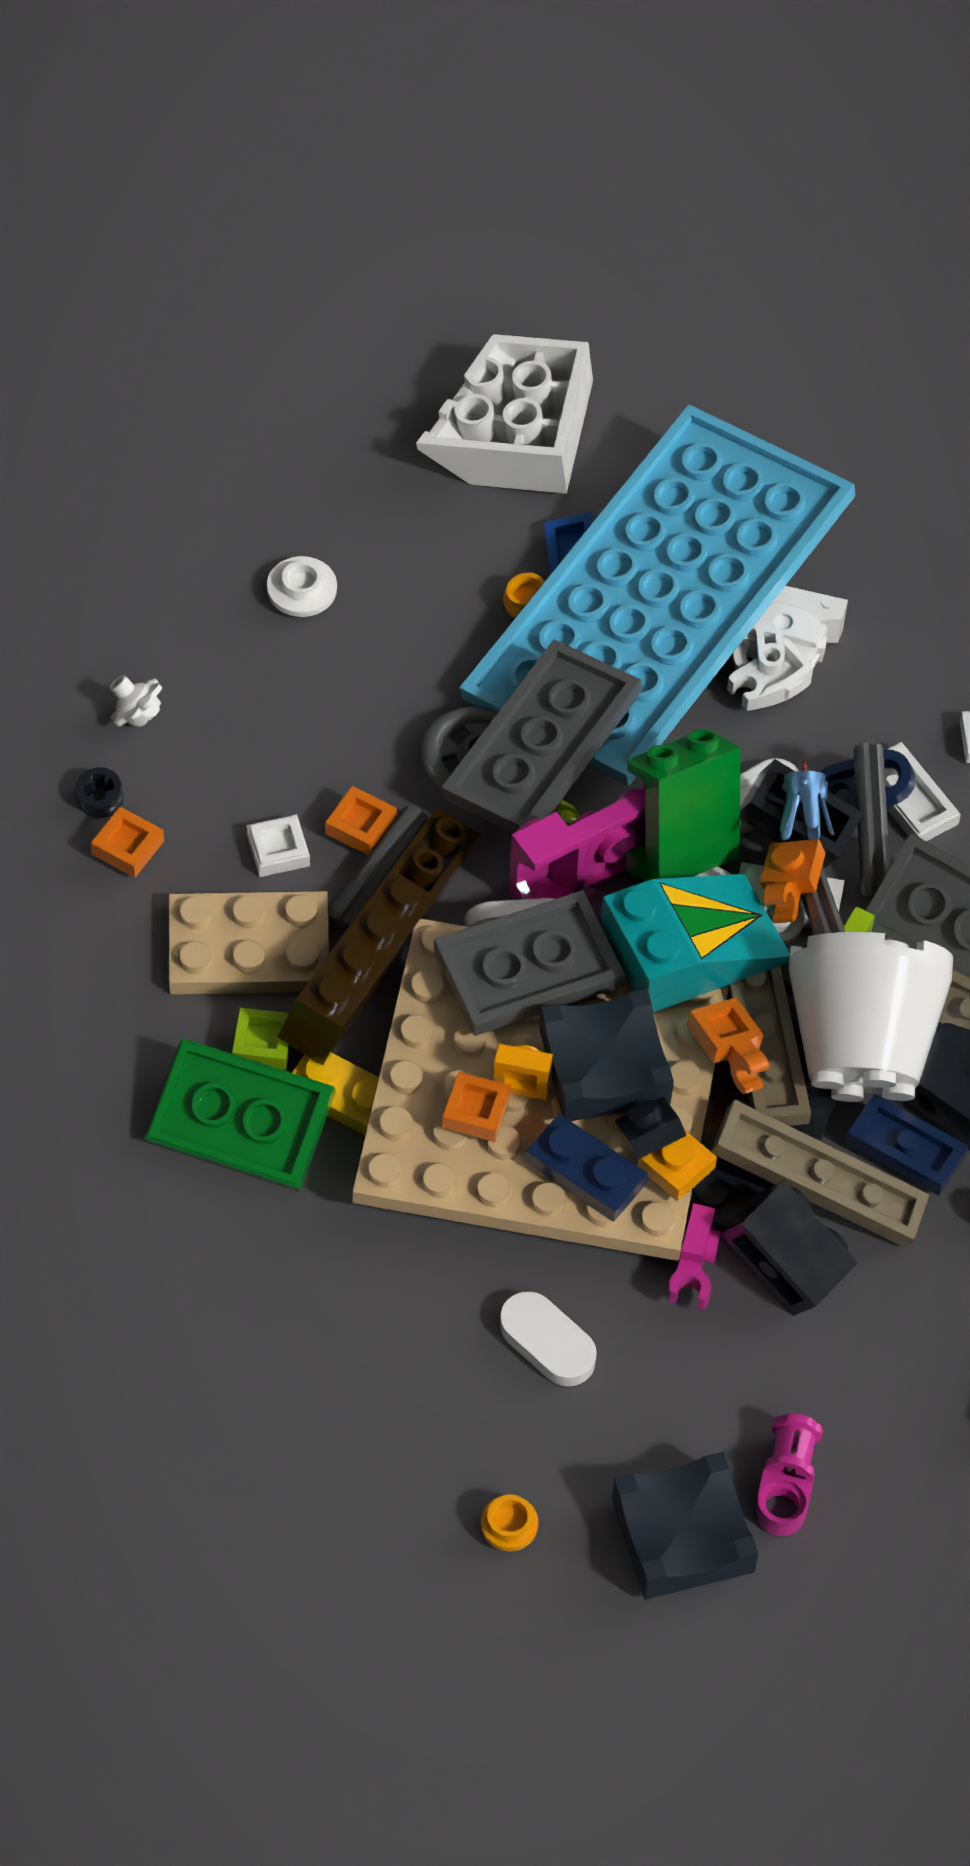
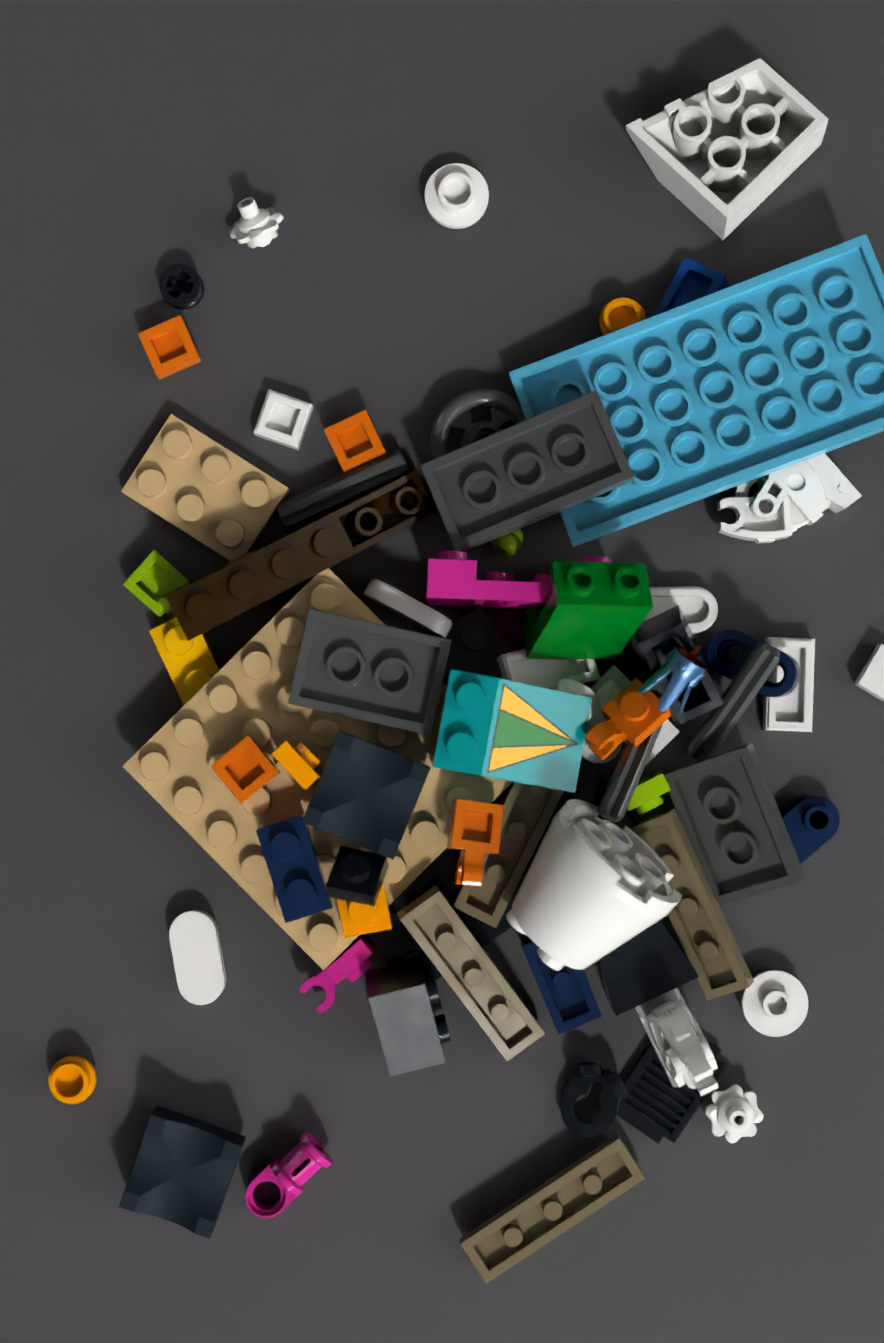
camera: 35 degrees right, 30 degrees up
(240, 1114) = (97, 637): green tile -> none

